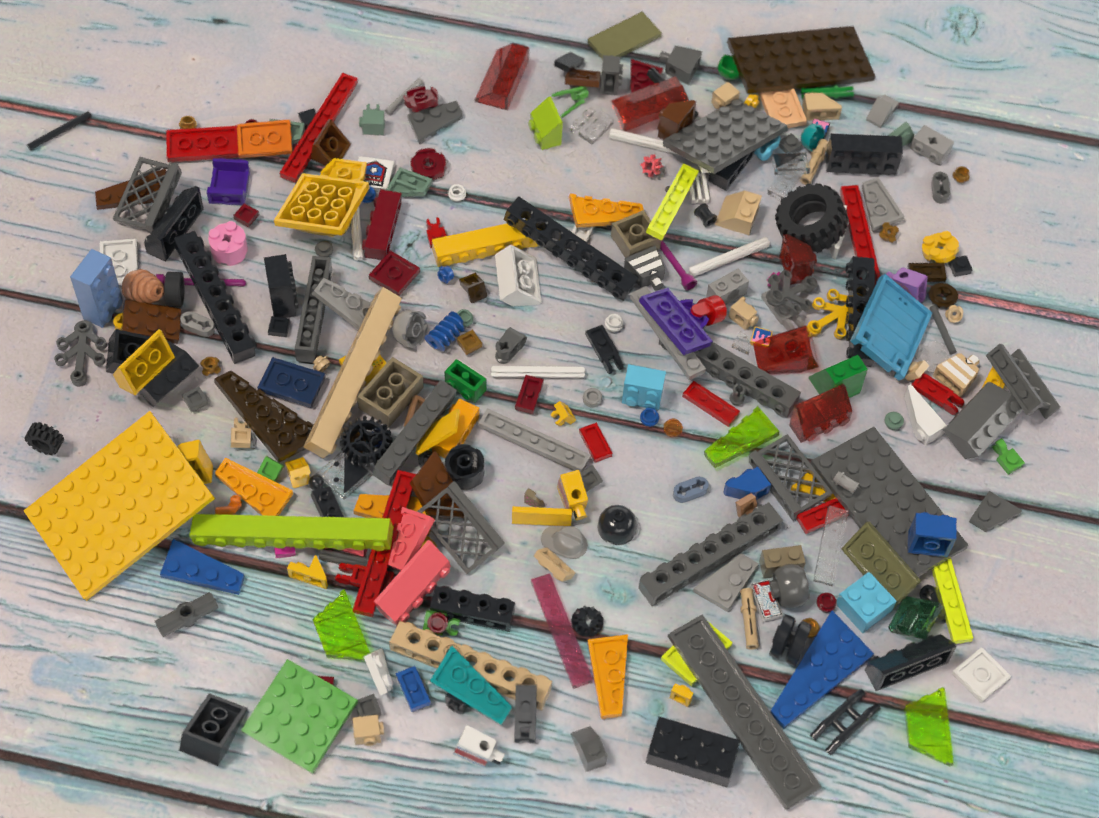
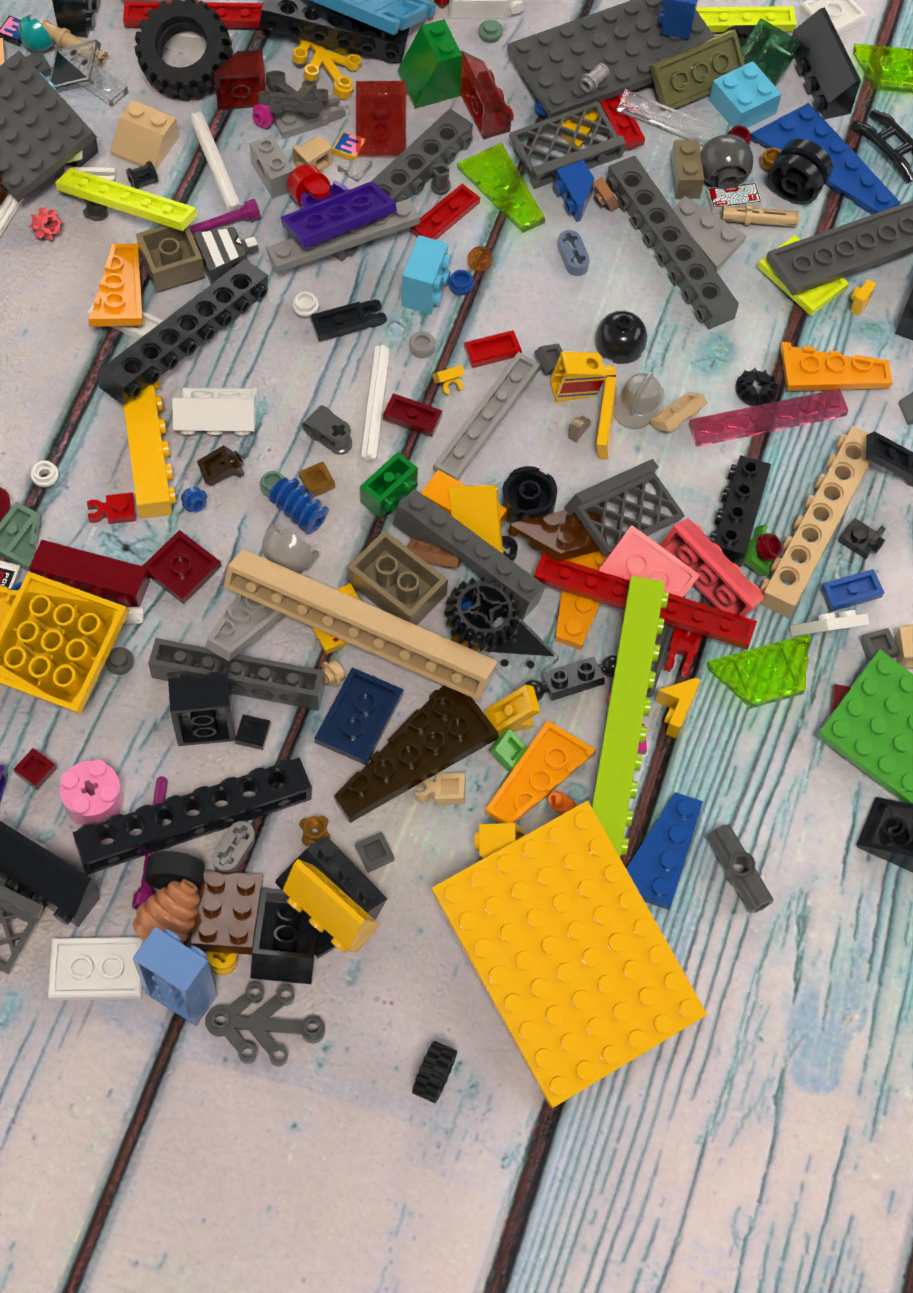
camera: 85 degrees left, 5 degrees up
(465, 683) = (860, 517): teal wing -> none

